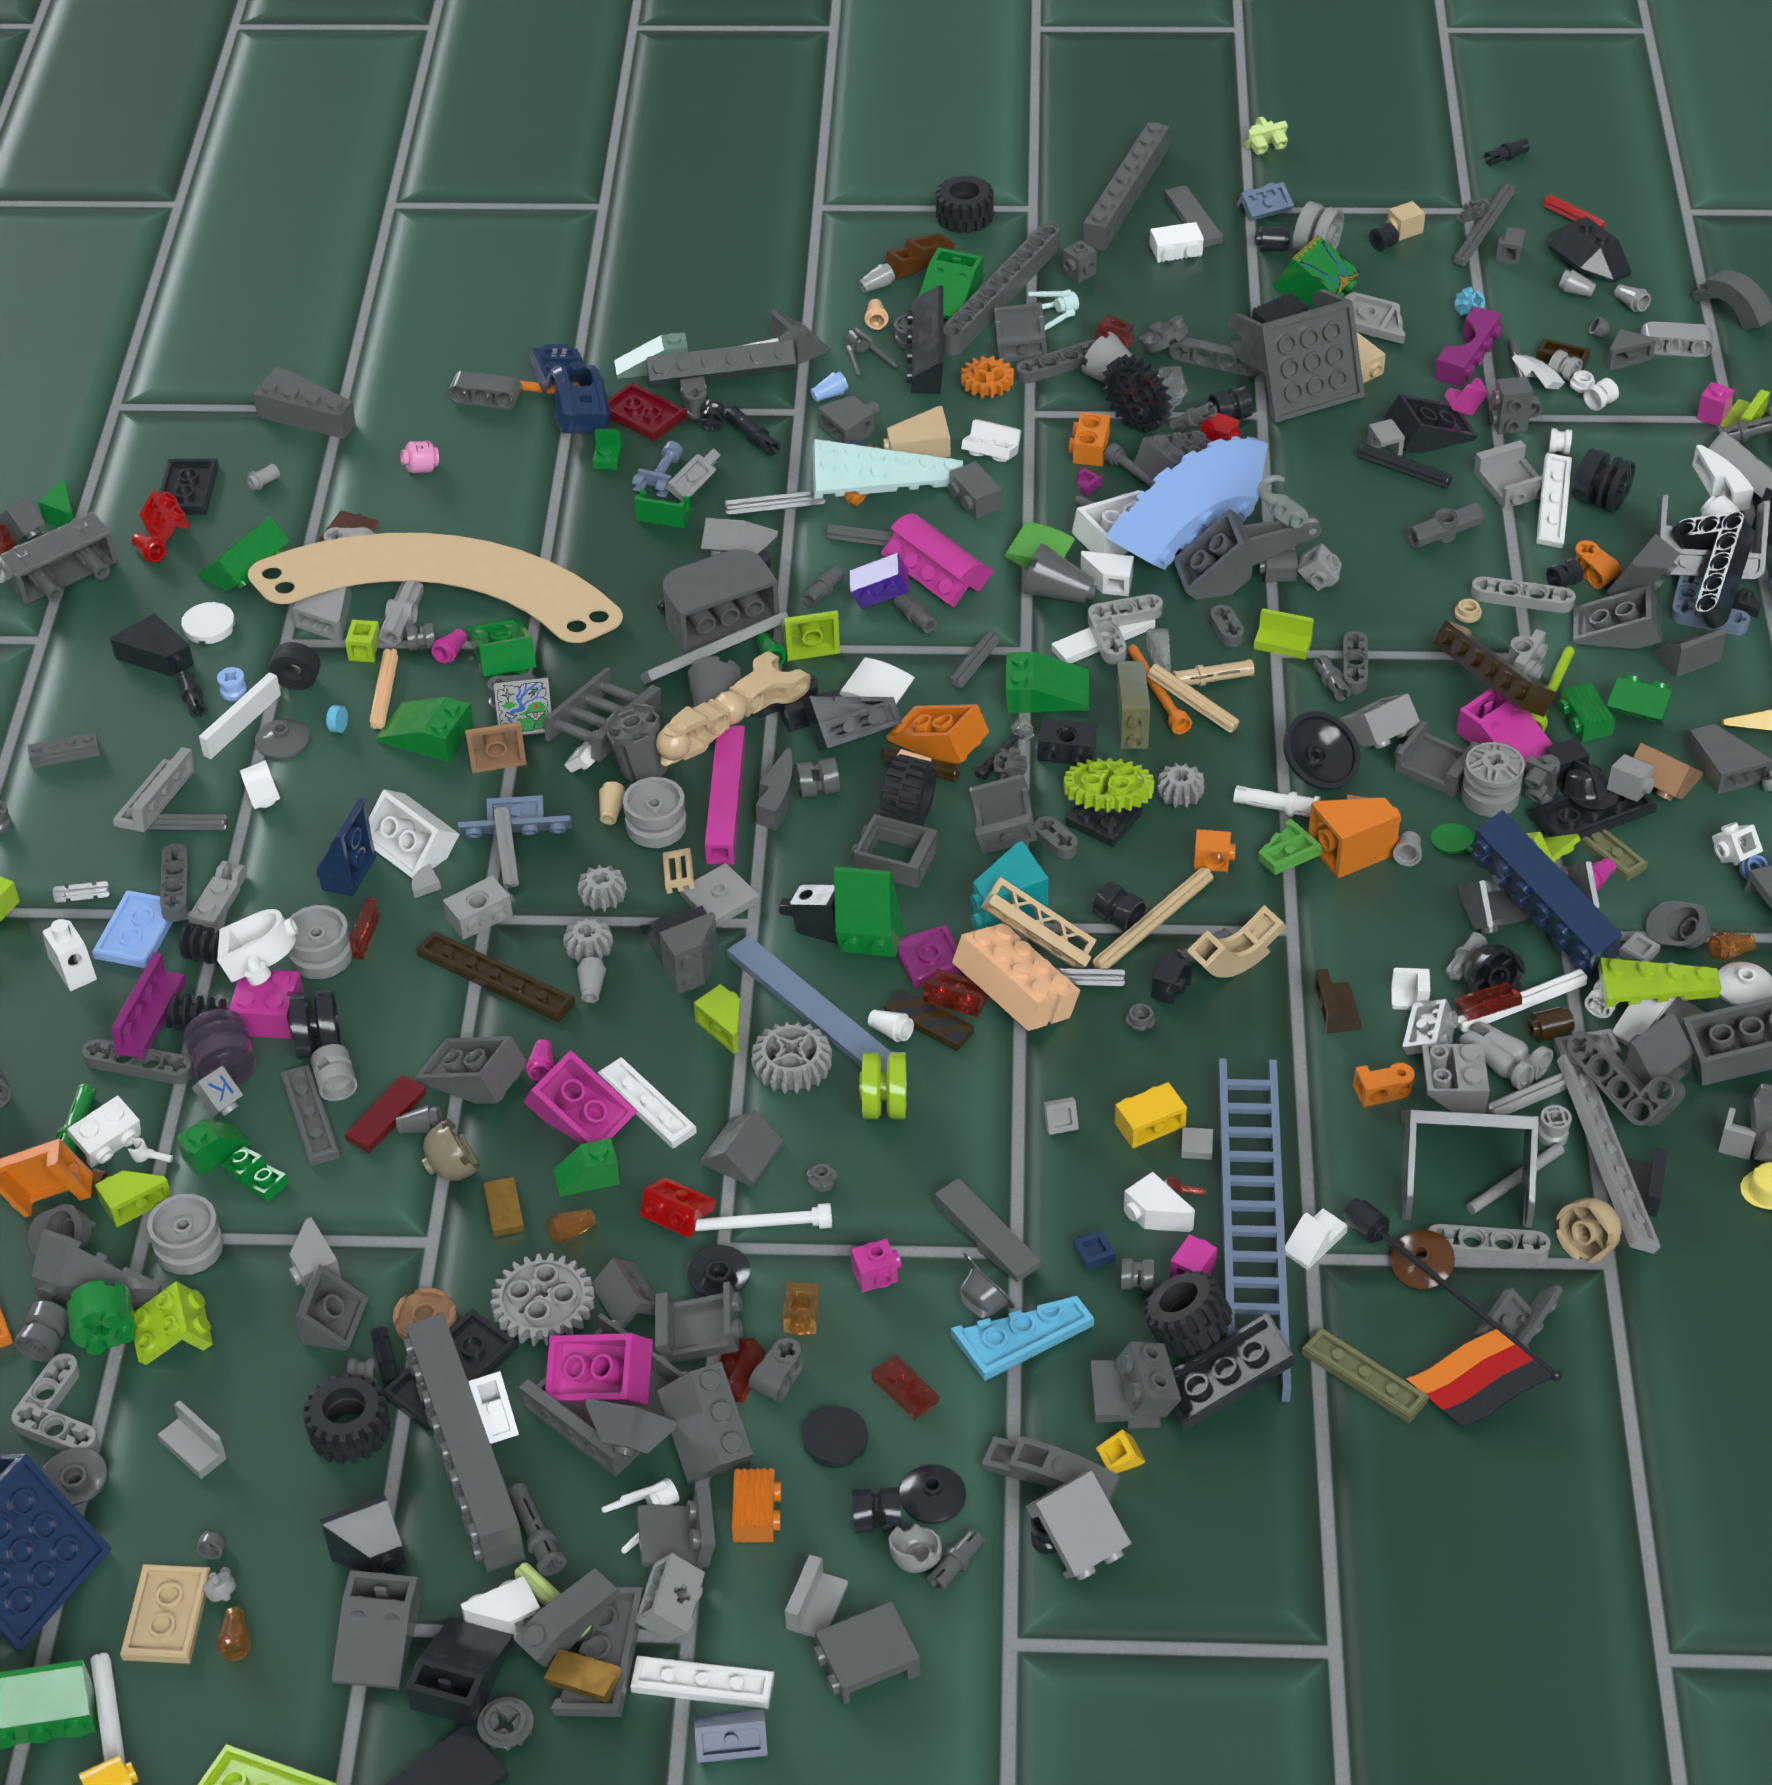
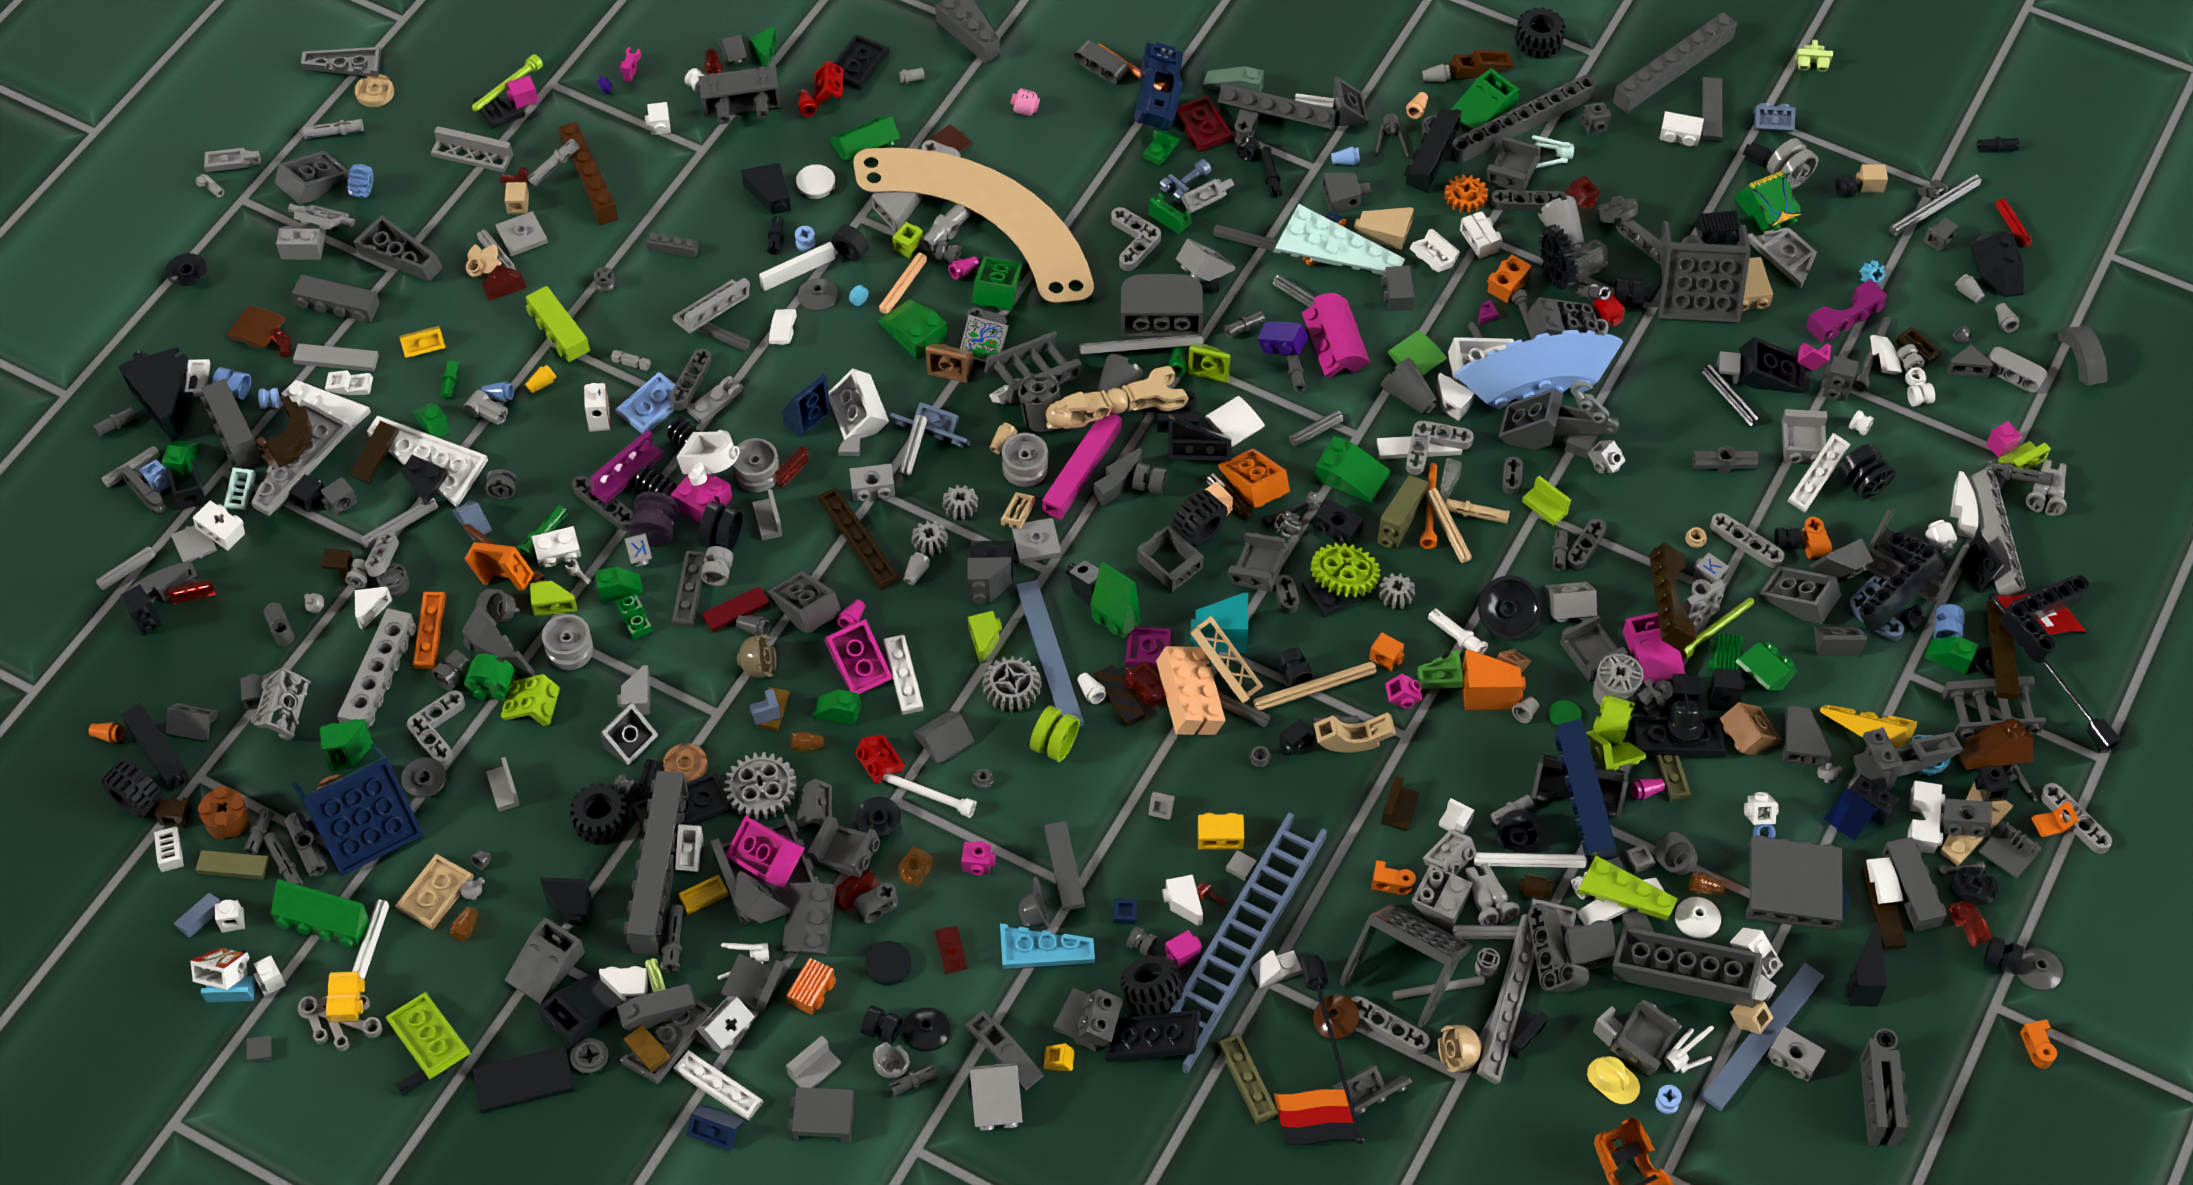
camera: 25 degrees right, 10 degrees up
(367, 994) = (767, 517): none -> light grey panel
(500, 1206) = (766, 710): none -> sand blue panel
(542, 1459) = (703, 894): none -> yellow tile
(653, 543) = (1141, 237): none -> light grey beam
(1030, 409) = (1480, 234): none -> white brick
(1262, 881) = (1403, 691): none -> dark pink brick
(1488, 1001) = (1502, 851): clear red tile -> none
(1503, 632) = (1710, 569): none -> light grey brick
(1520, 804) = (1614, 718): none -> lime brick
(1611, 738) = (1725, 689): none -> black brick
(1631, 778) = (1716, 725): light grey brick -> none

